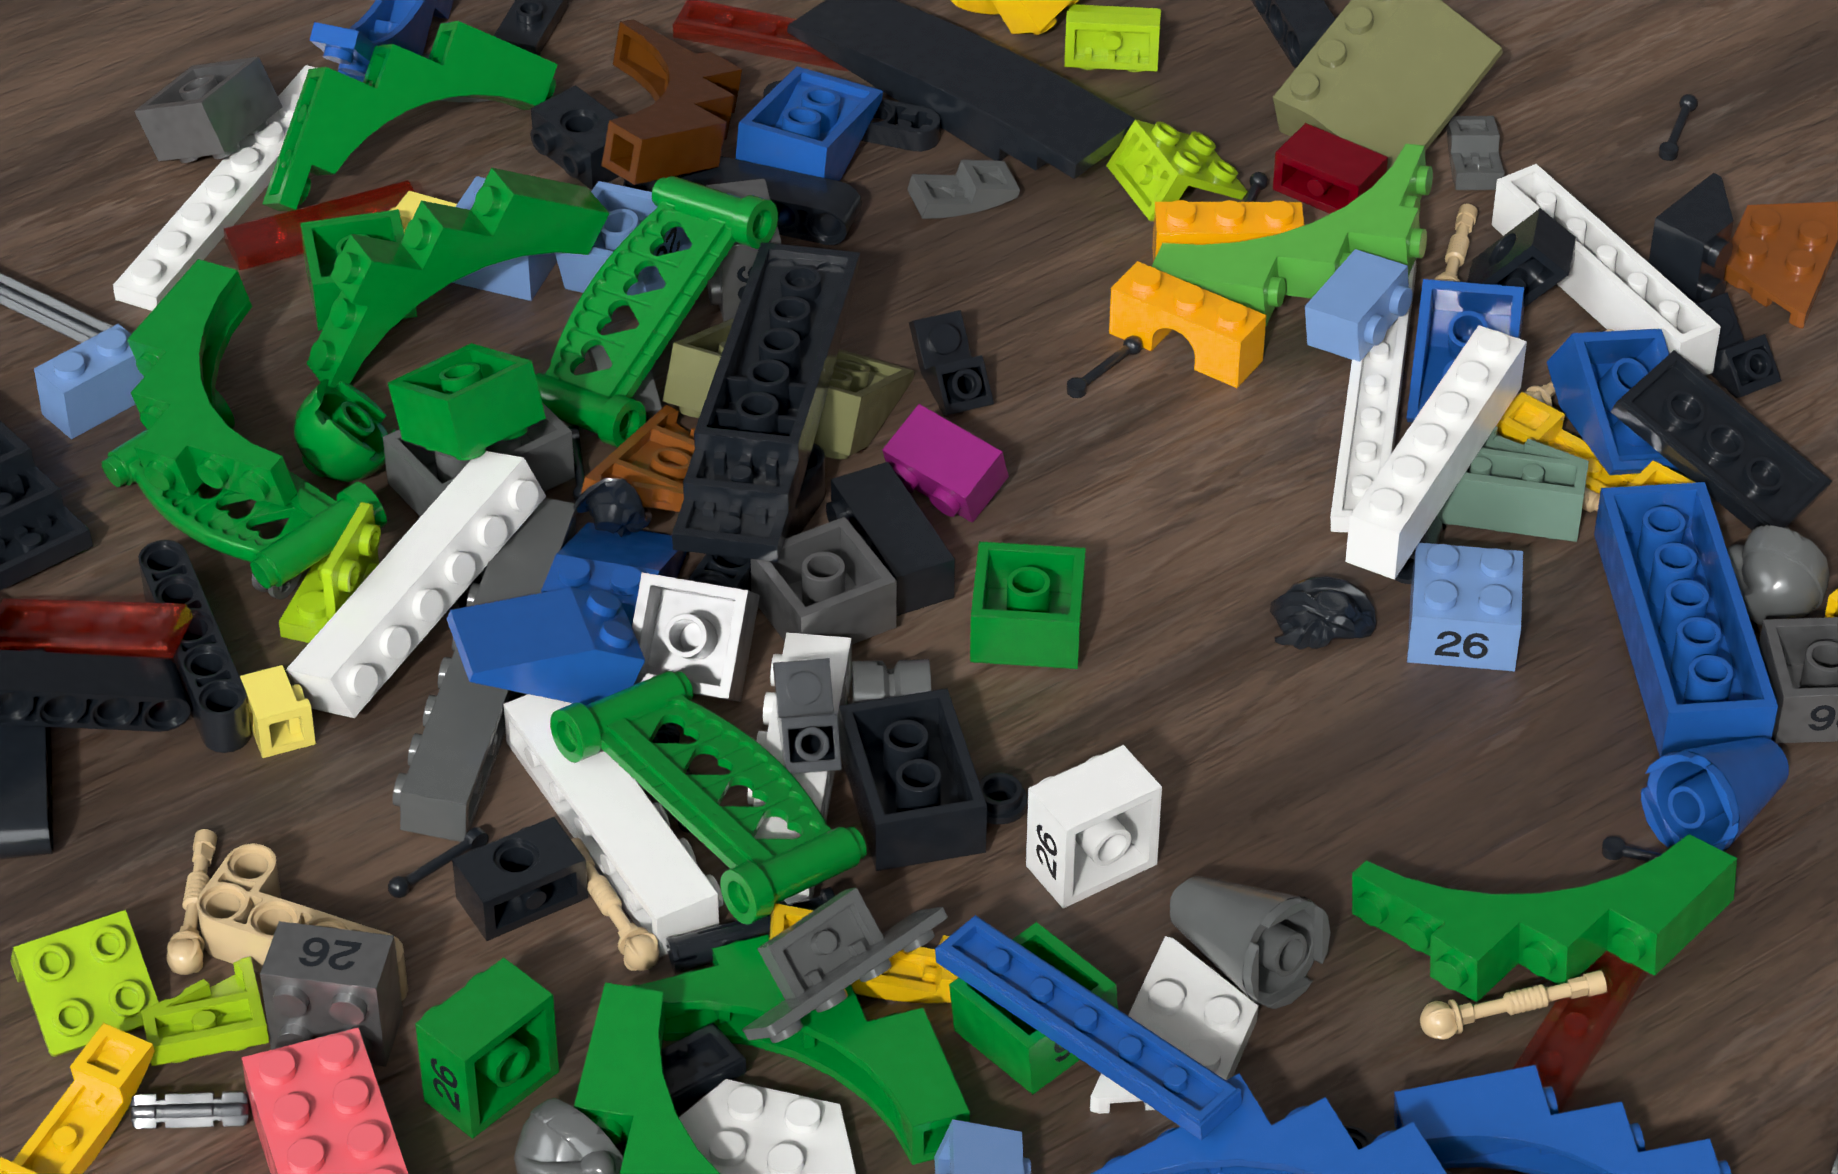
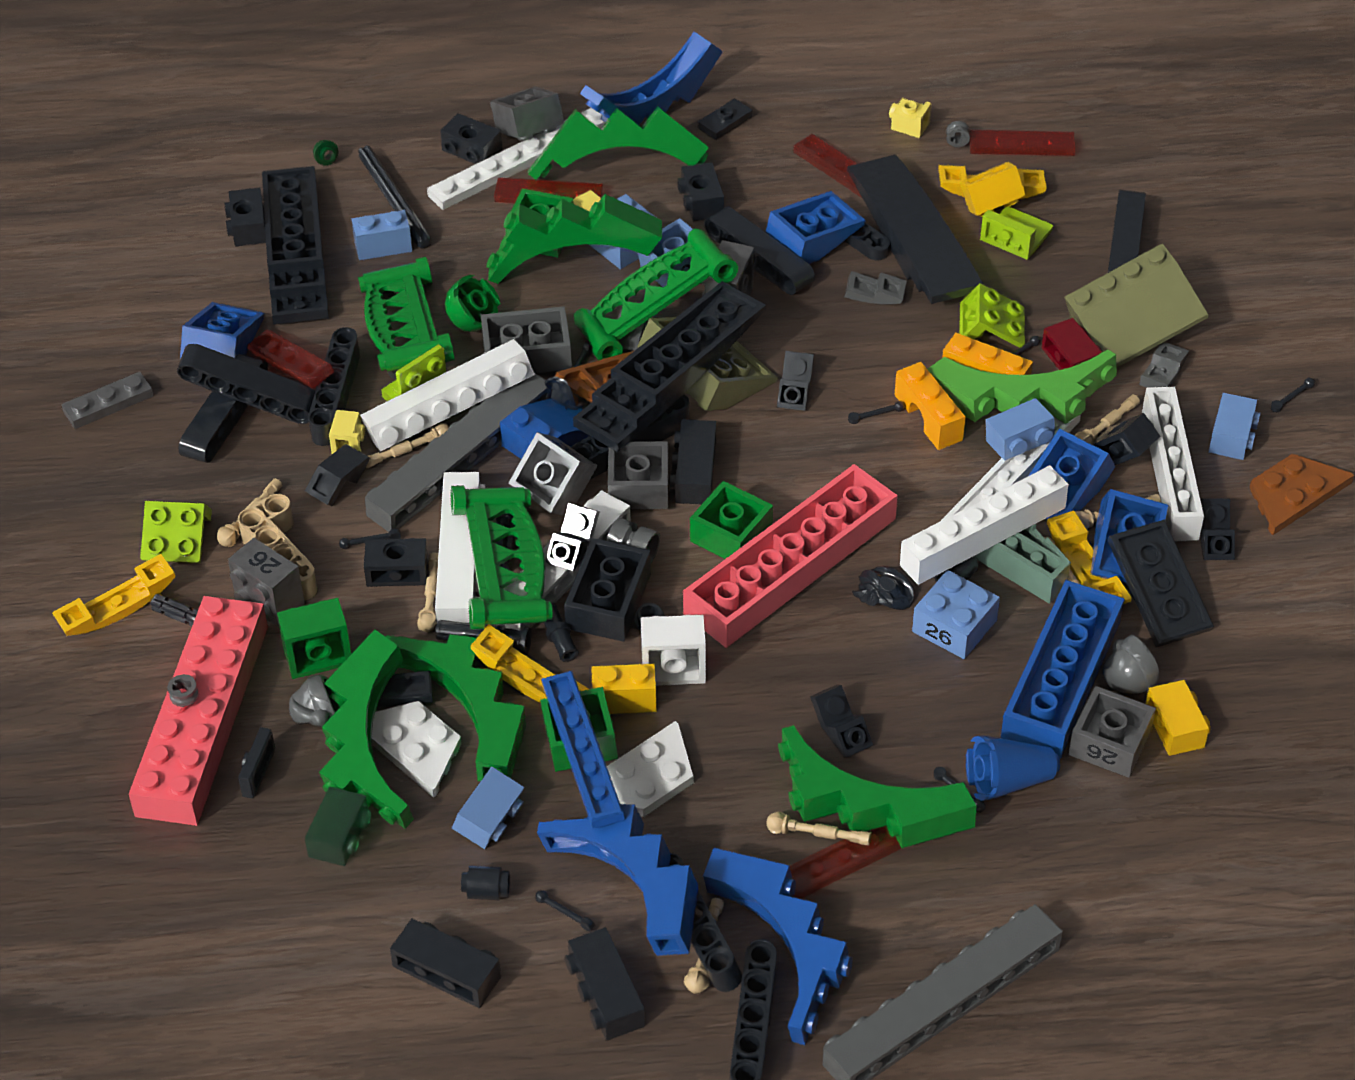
camera: 30 degrees right, 5 degrees up
(133, 185) = (470, 139): none -> black brick
(180, 360) = (404, 257): green arch -> none
(208, 1018) = (206, 572): lime wing -> none
(307, 781) = (332, 473): none -> black slope
(426, 658) = (407, 445): none -> tan piece
(467, 401) = (518, 312): green brick -> none
(550, 644) = (476, 451): blue slope -> none
(690, 109) = (742, 203): reddish brown arch -> none
(830, 952) = (490, 659): dark grey bracket -> none
(879, 883) = (559, 634): none -> black pin
(946, 464) = (747, 432): magenta brick -> none
(1068, 902) = (627, 687): none -> yellow brick
(1156, 610) = (790, 555): none -> coral brick
(1253, 935) = (712, 741): dark grey cone -> none
(1431, 842) = (836, 718): none -> black slope
(1634, 190) = (1233, 426): none -> medium blue brick
(1694, 240) = (1230, 465): black slope -> none

